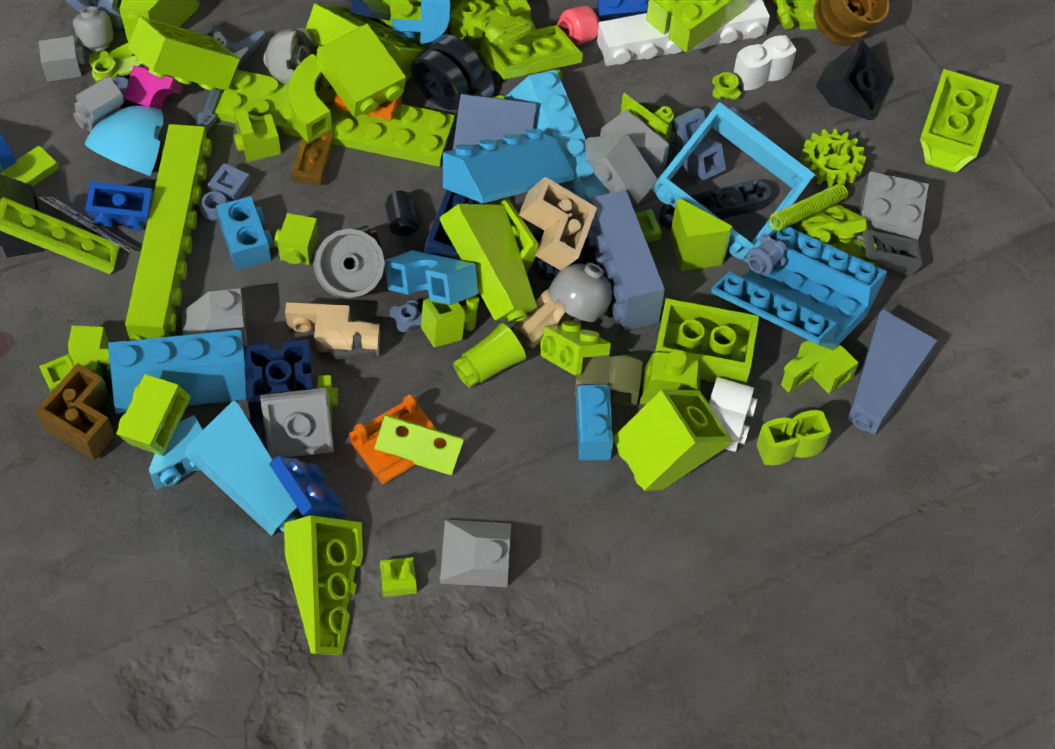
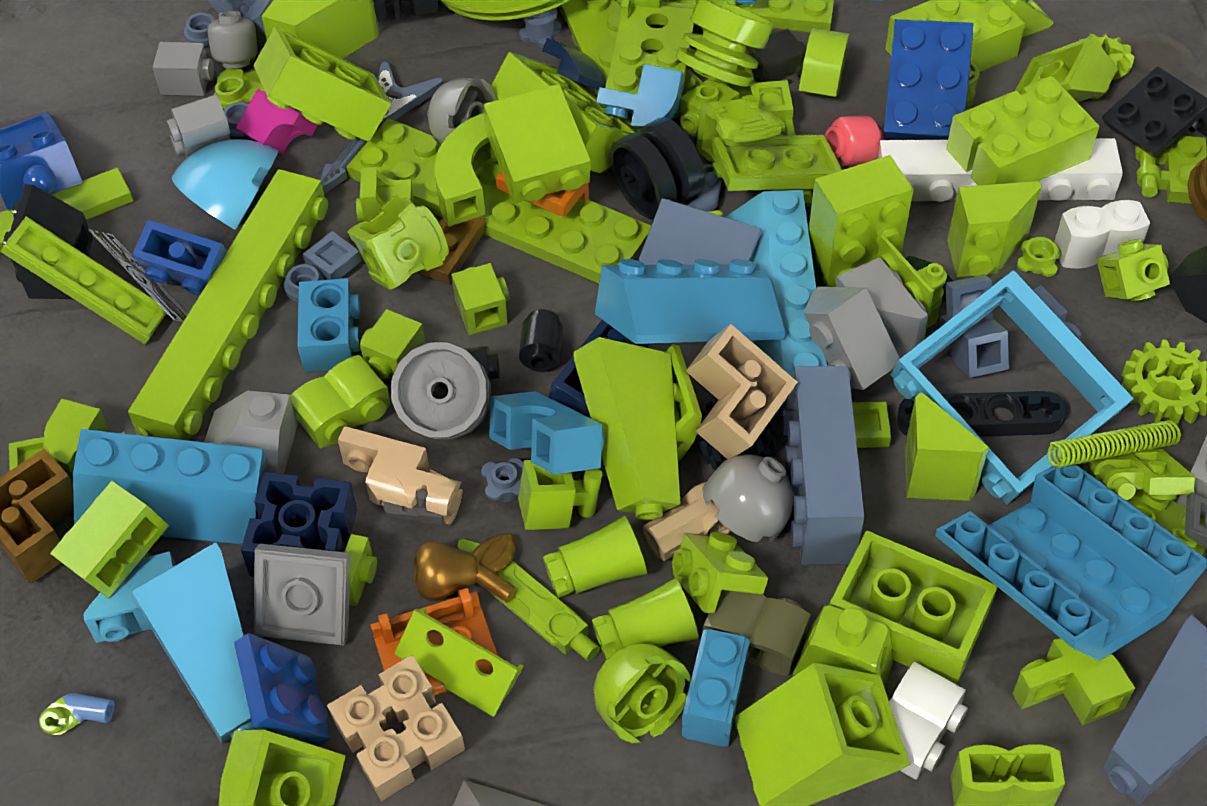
camera: 20 degrees right, 5 degrees down
(61, 24) = (196, 28): none -> sand blue plate
(161, 536) = (73, 710): none -> arm
(273, 285) = (343, 397): none -> lime brick
(279, 162) = (400, 242): none -> lime piece
(348, 191) = (480, 298): none -> lime brick
(388, 386) = (445, 570): none -> pearl gold piece
(393, 515) = (389, 756): none -> tan brick
(448, 393) = (543, 611): none -> lime piece
(536, 391) = (653, 619): none -> lime plant
(546, 435) = (640, 691): none -> lime cylinder
(599, 83) = (852, 214): none -> lime brick
(689, 71) = (990, 225): none -> lime slope
(764, 257) = (1032, 500): sand blue brick -> none
(792, 84) = (1133, 270): none -> lime brick

